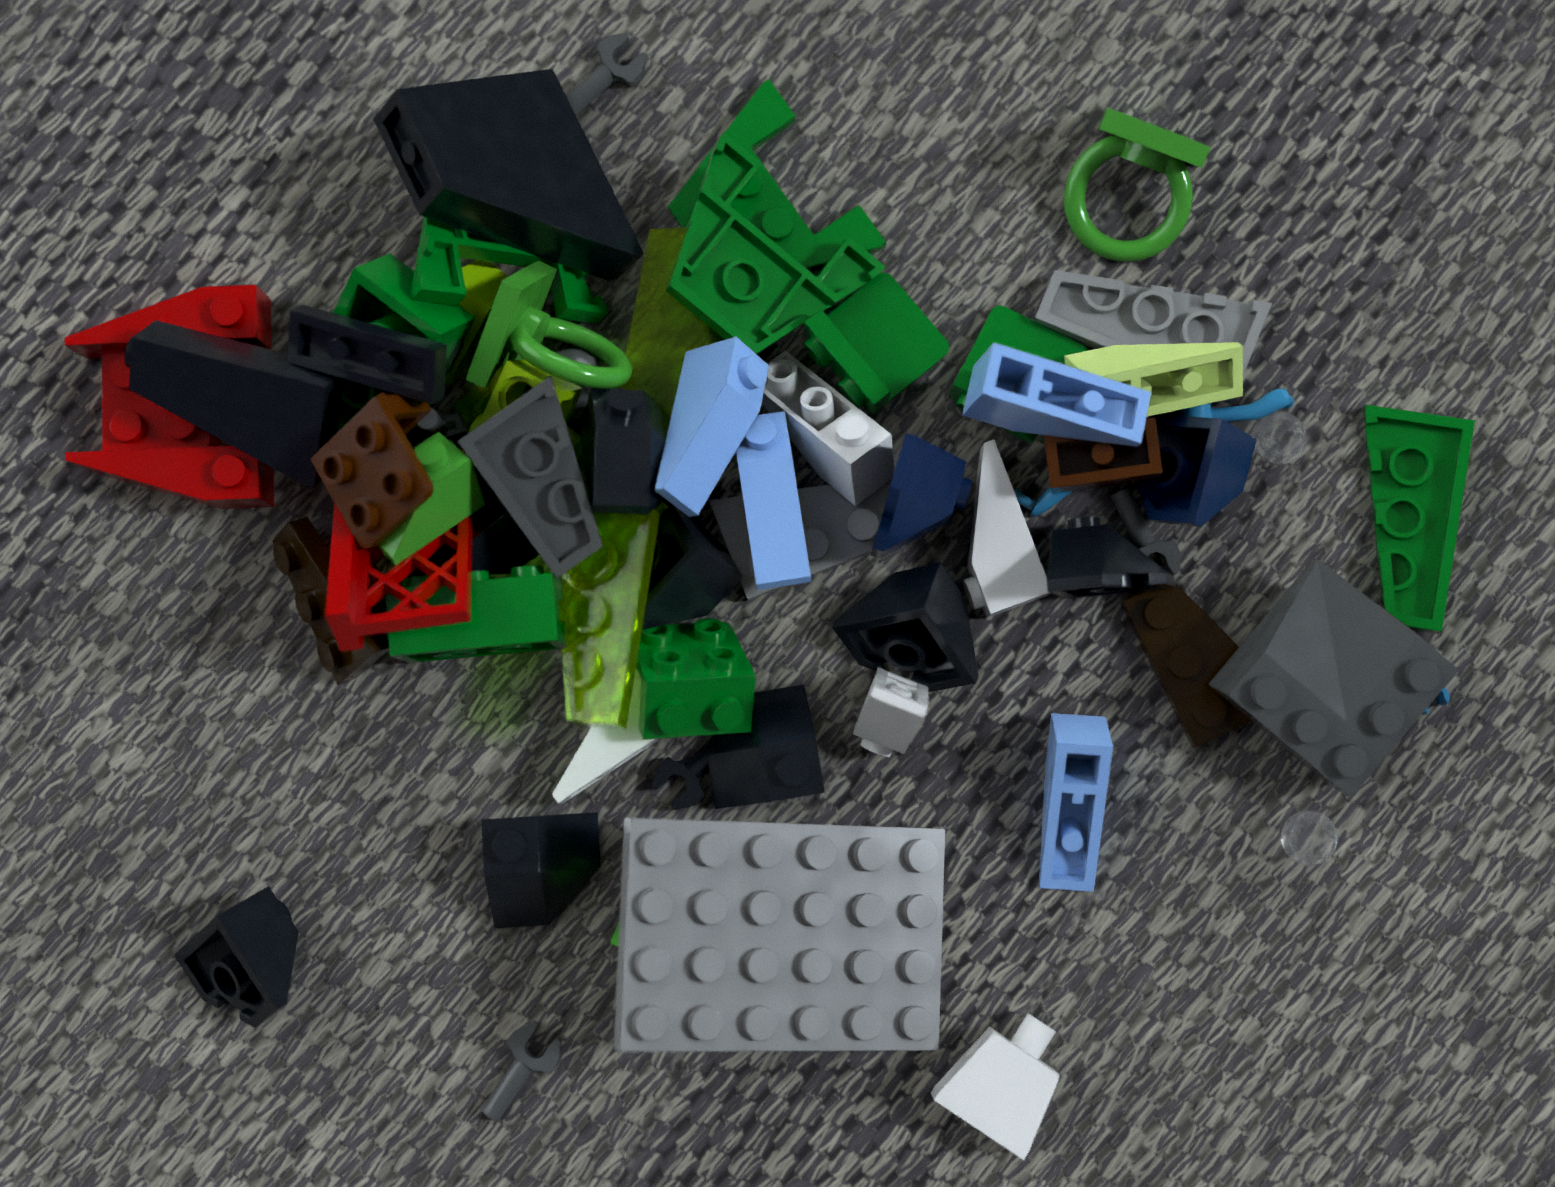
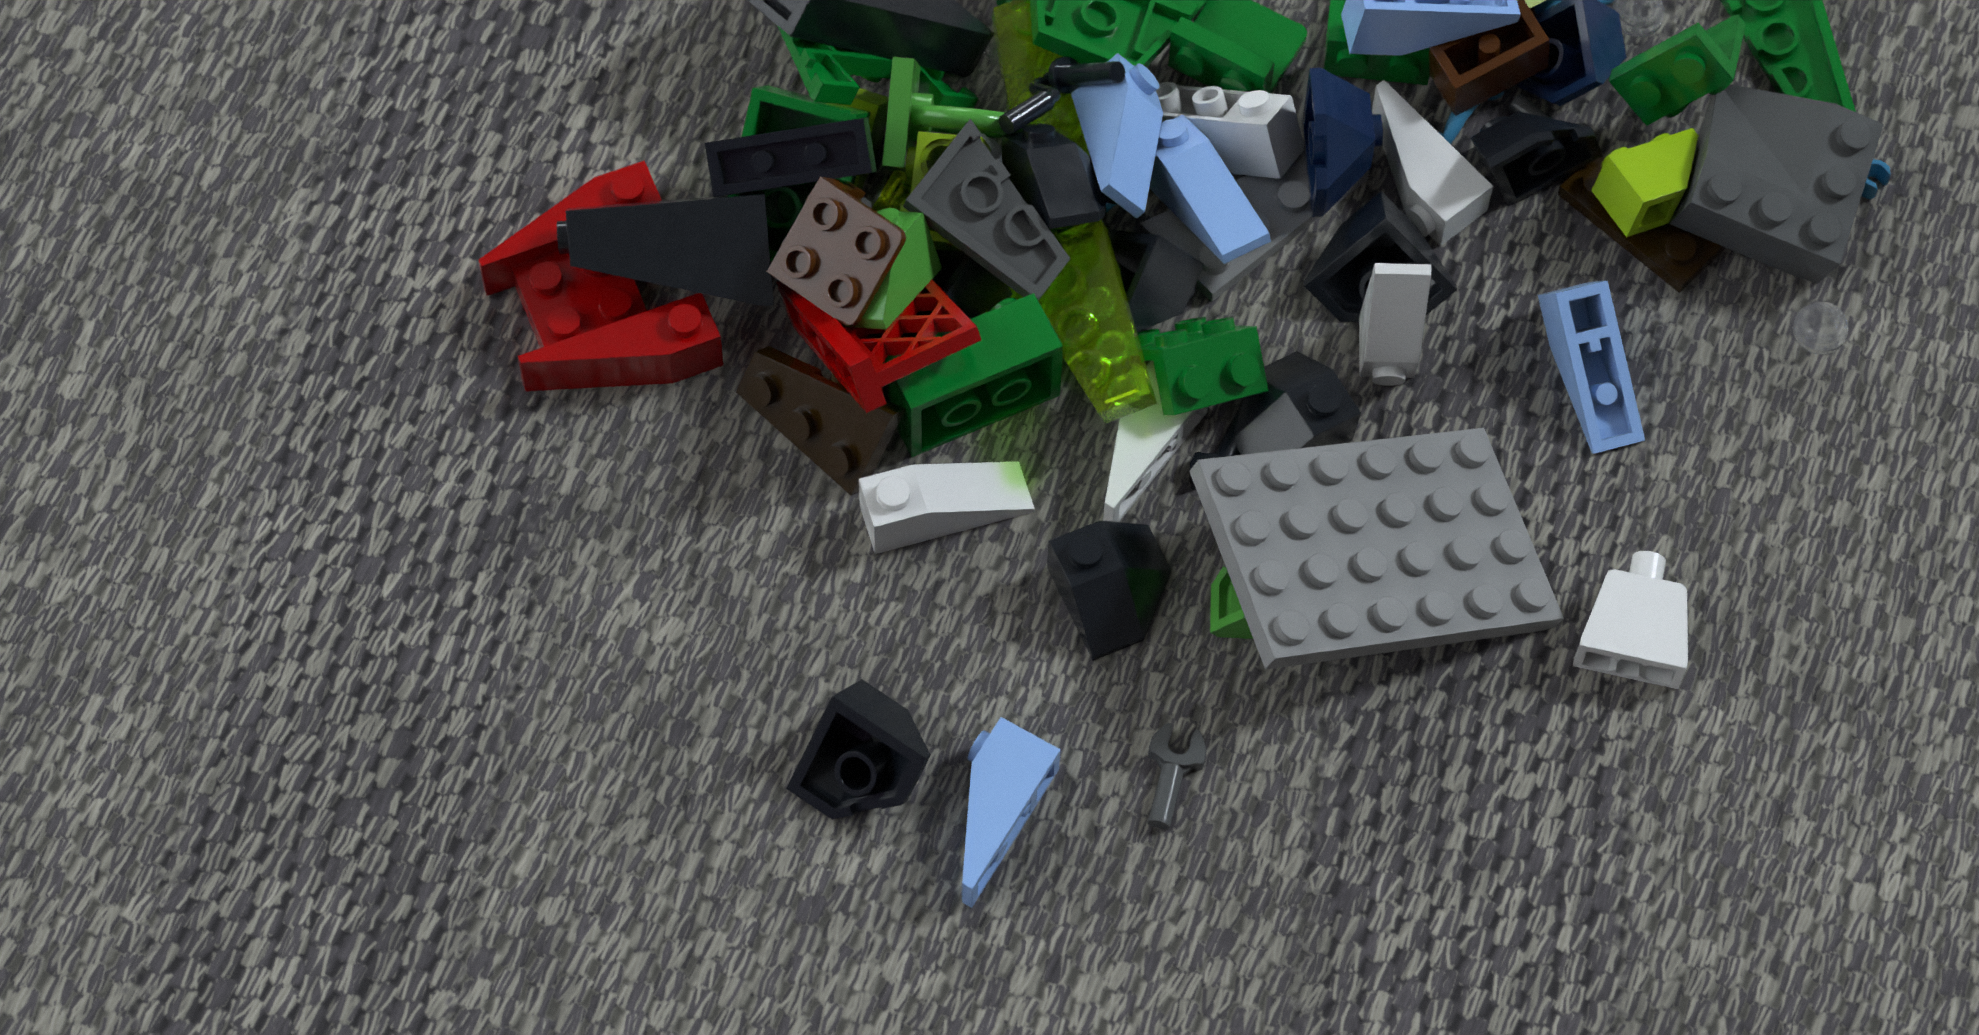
camera: 25 degrees left, 20 degrees down
(352, 1041) = (1006, 784): none -> light blue slope
(415, 726) = (939, 500): none -> white slope
(684, 333) = (1064, 77): none -> black piece
(1204, 644) = (1646, 181): none -> lime slope
(1294, 533) = (1680, 70): none -> green bracket

